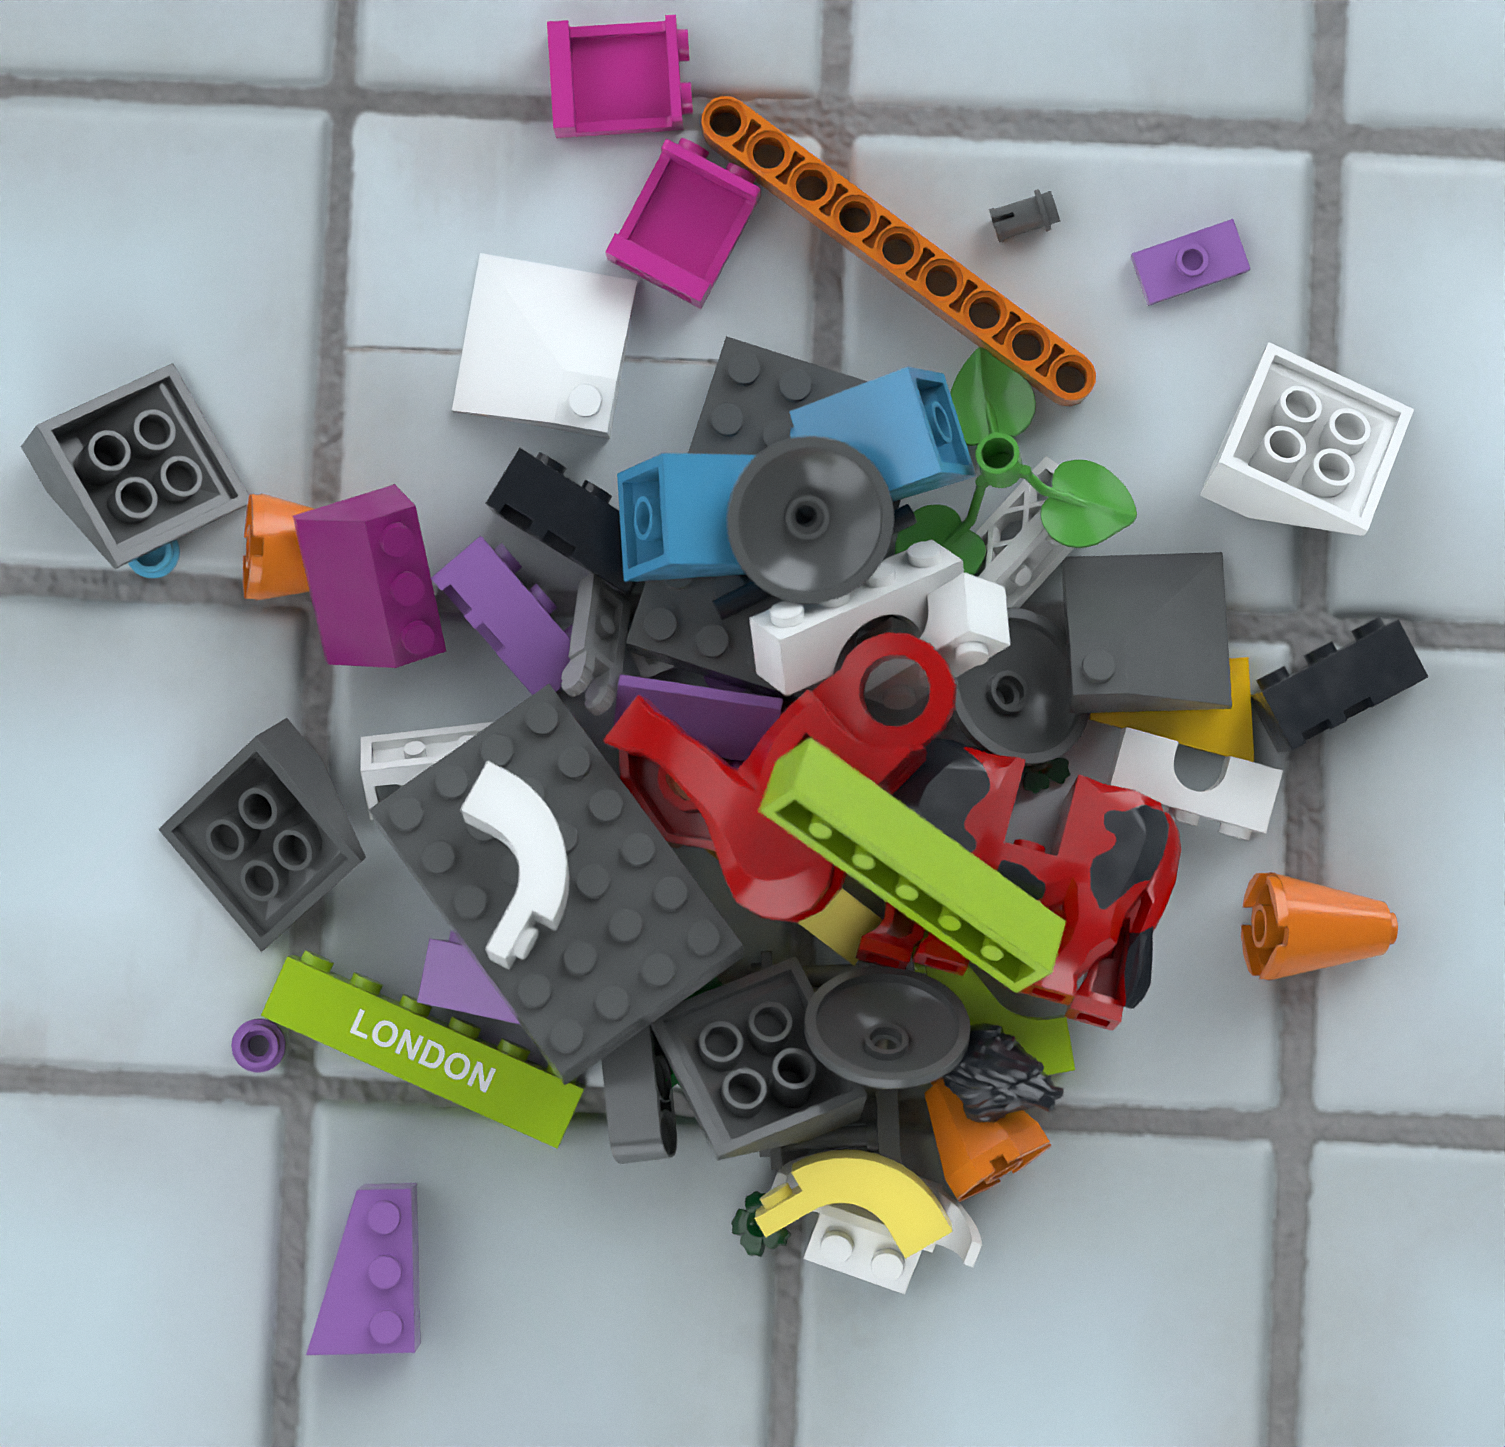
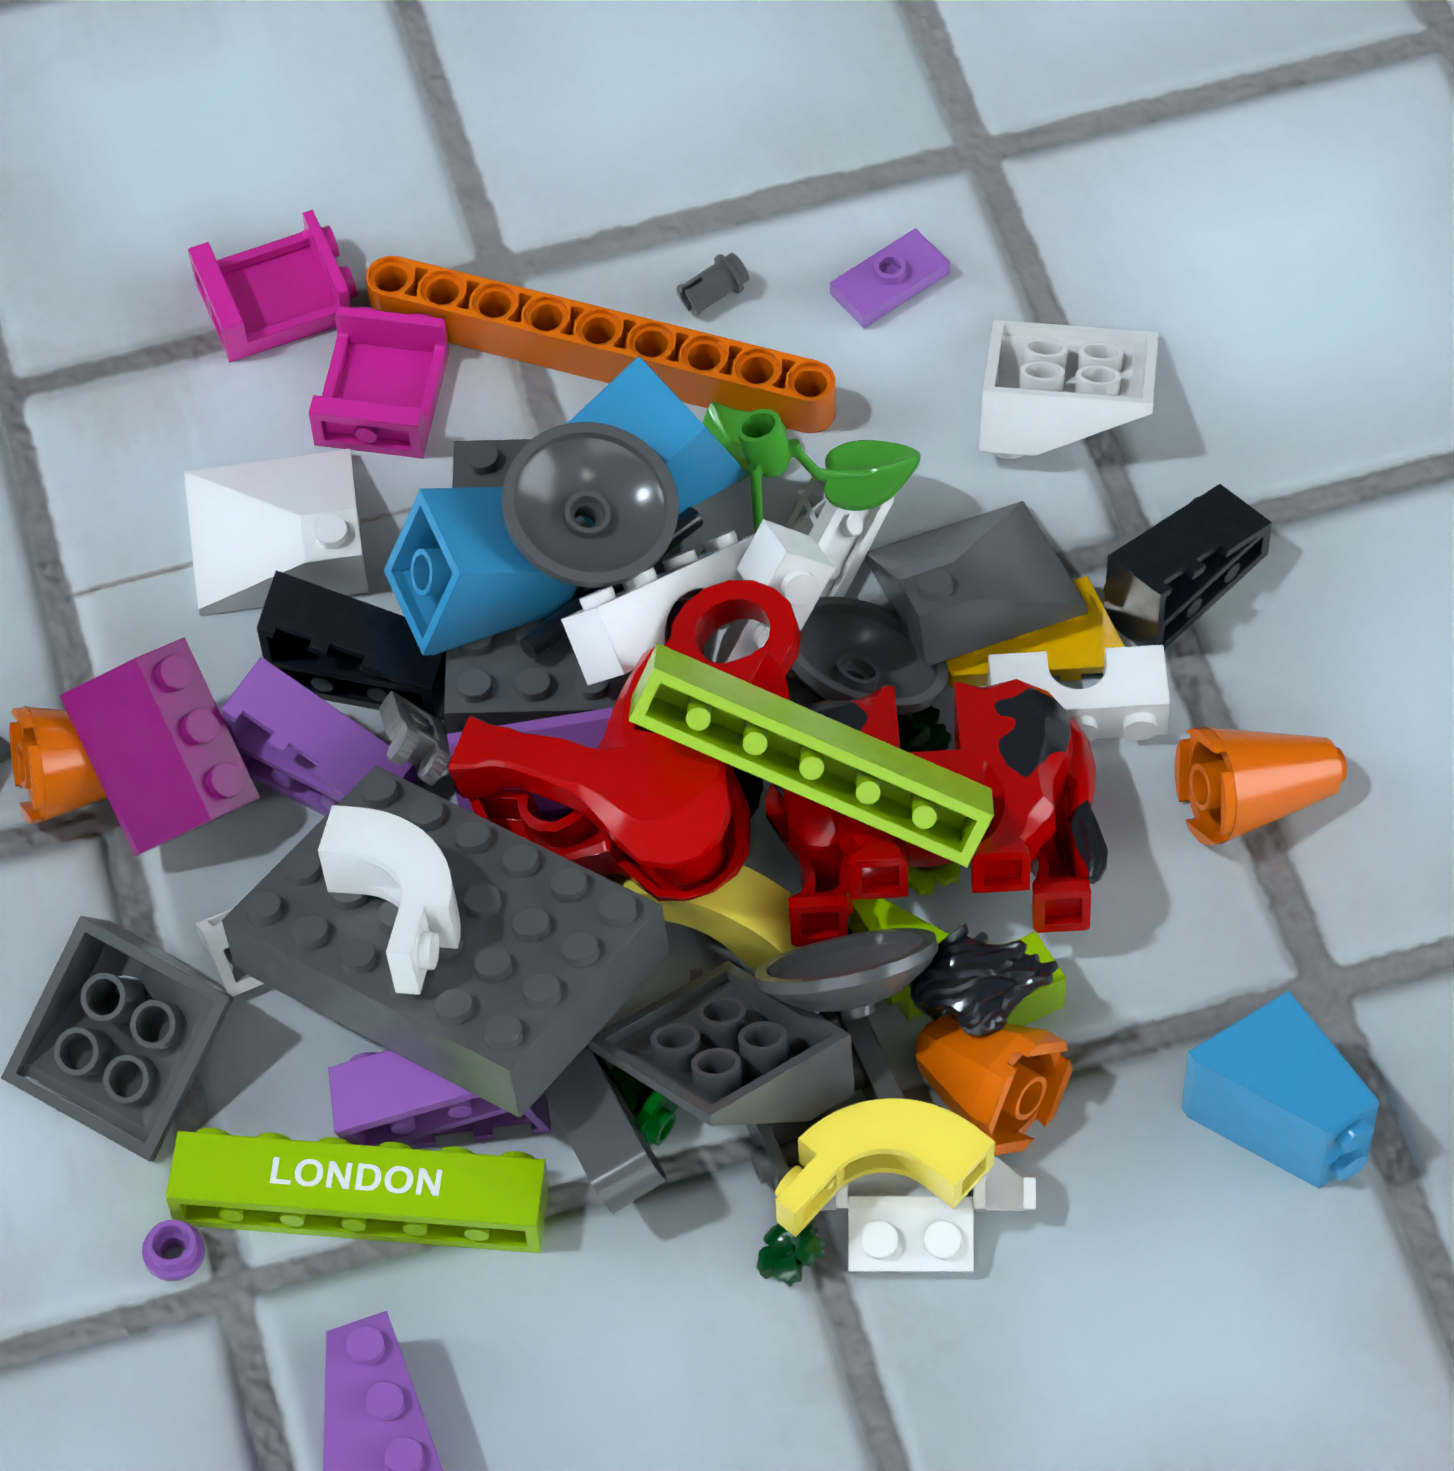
camera: 20 degrees left, 30 degrees down
(1219, 1241) = (1283, 1094): none -> dark azure slope

